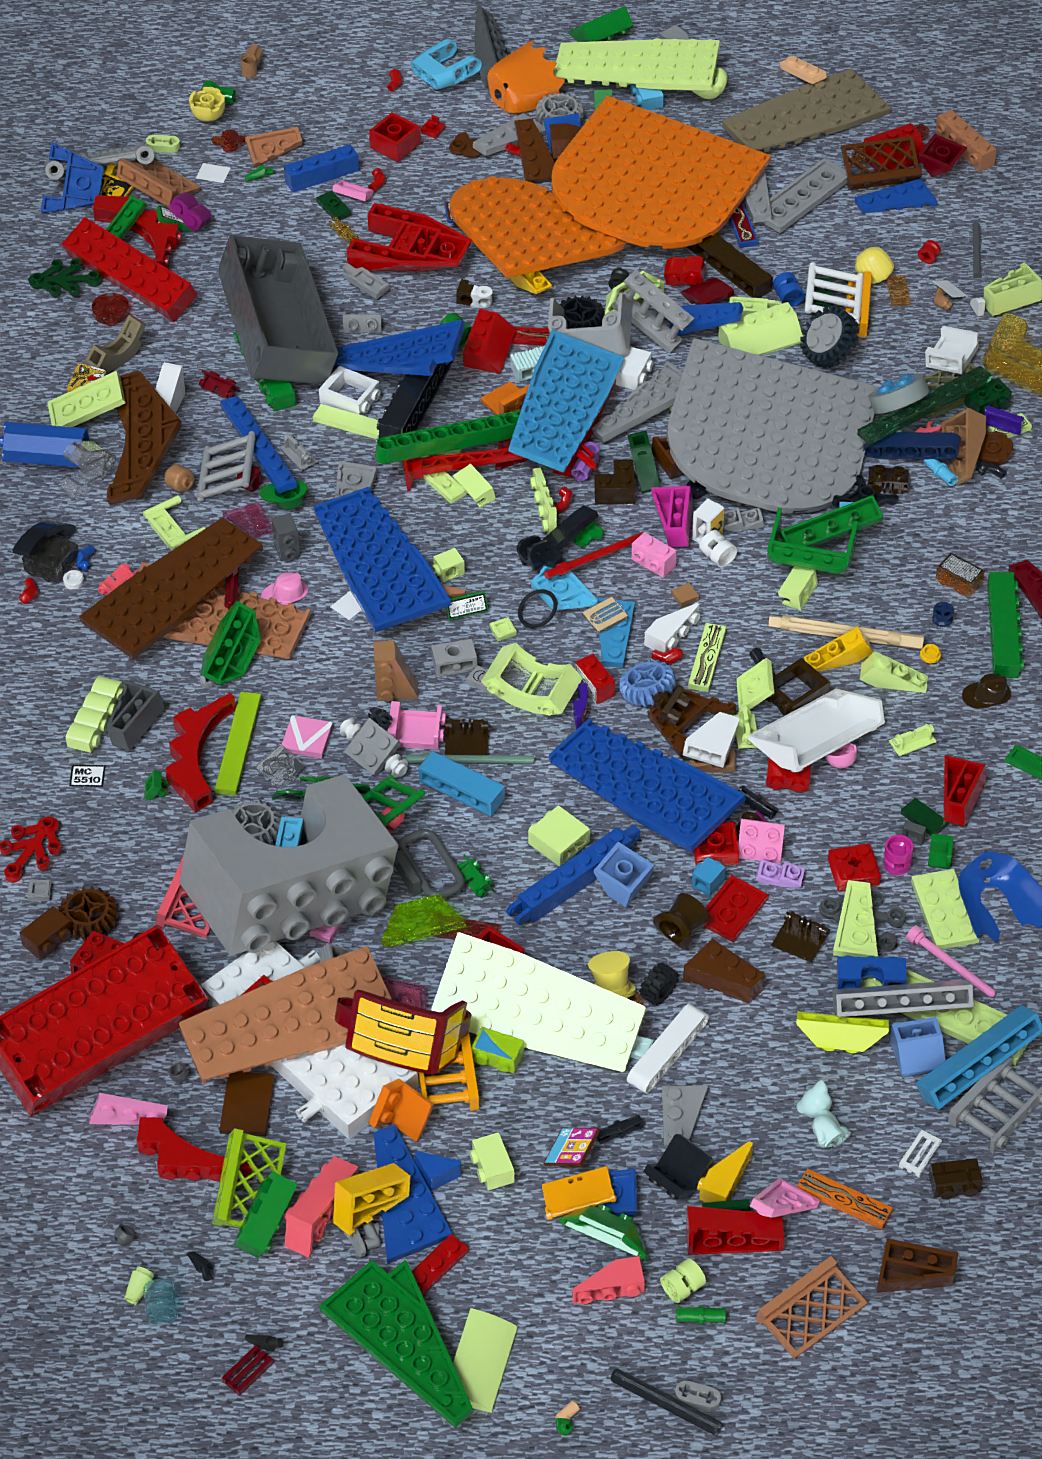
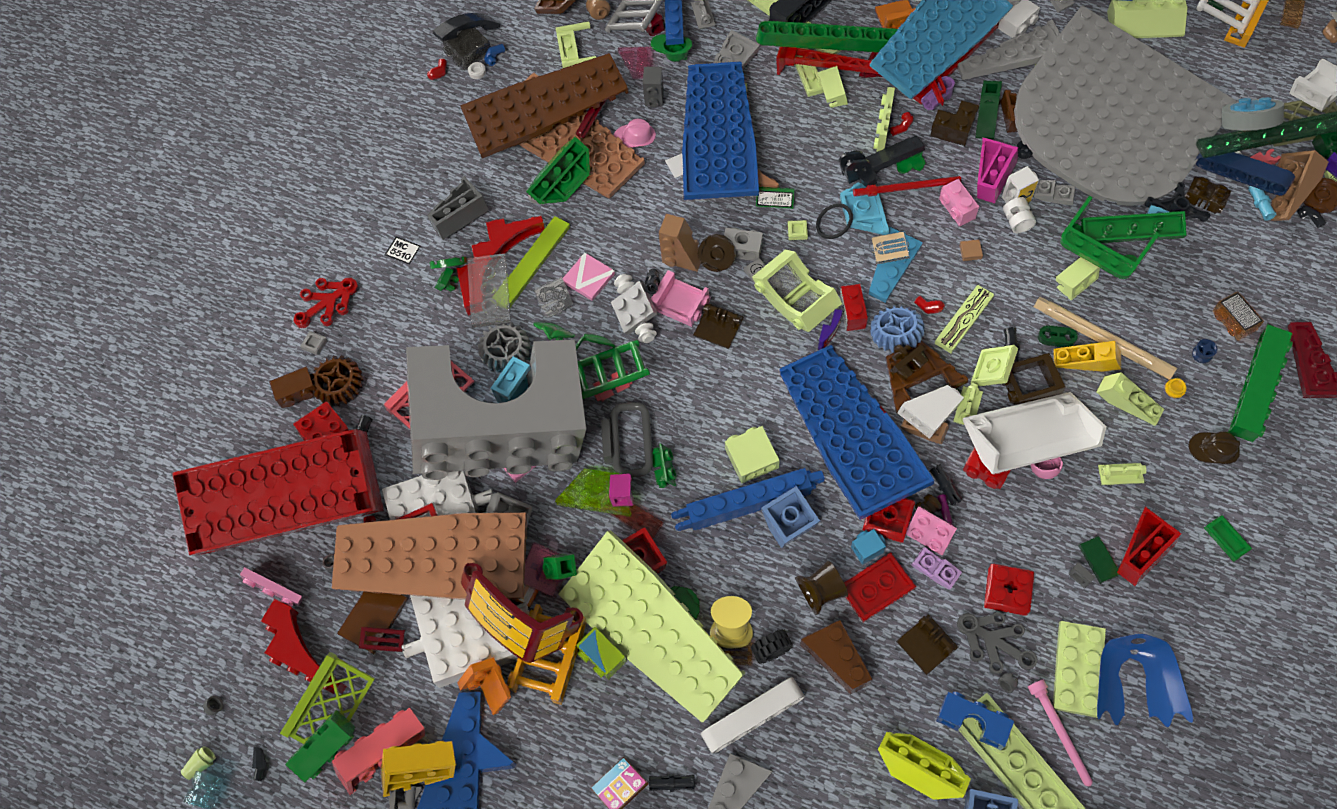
camera: 30 degrees right, 15 degrees up
(94, 715) = (415, 210): yellowish green brick -> none
(121, 574) = (511, 79): coral hinge -> none
(154, 764) = (448, 262): none -> green tile
(213, 776) = (488, 290): none -> clear tile
(270, 1120) = (381, 639): none -> dark red tile
(421, 986) = (559, 566): none -> green brick
(433, 671) = (716, 253): none -> dark brown tile
(448, 565) = (777, 154): yellowish green brick -> none
(449, 902) = (620, 490): none -> dark pink panel
(461, 783) = (692, 370): dark azure brick -> none
(477, 759) = (677, 334): sand green bar -> none
(492, 1160) = (542, 771): yellowish green brick -> none
(641, 1046) = (731, 703): light aqua tile -> none
(667, 630) = (938, 281): white slope -> none
(802, 644) = (1057, 336): none -> dark green beam
(829, 336) = (1209, 39): wheel -> none
(856, 925) = (983, 658): yellowish green wing -> none
(898, 854) = (1060, 591): dark pink wheel -> none
(903, 998) = (995, 764): light grey brick -> none
(940, 851) = (1100, 605): green panel -> none

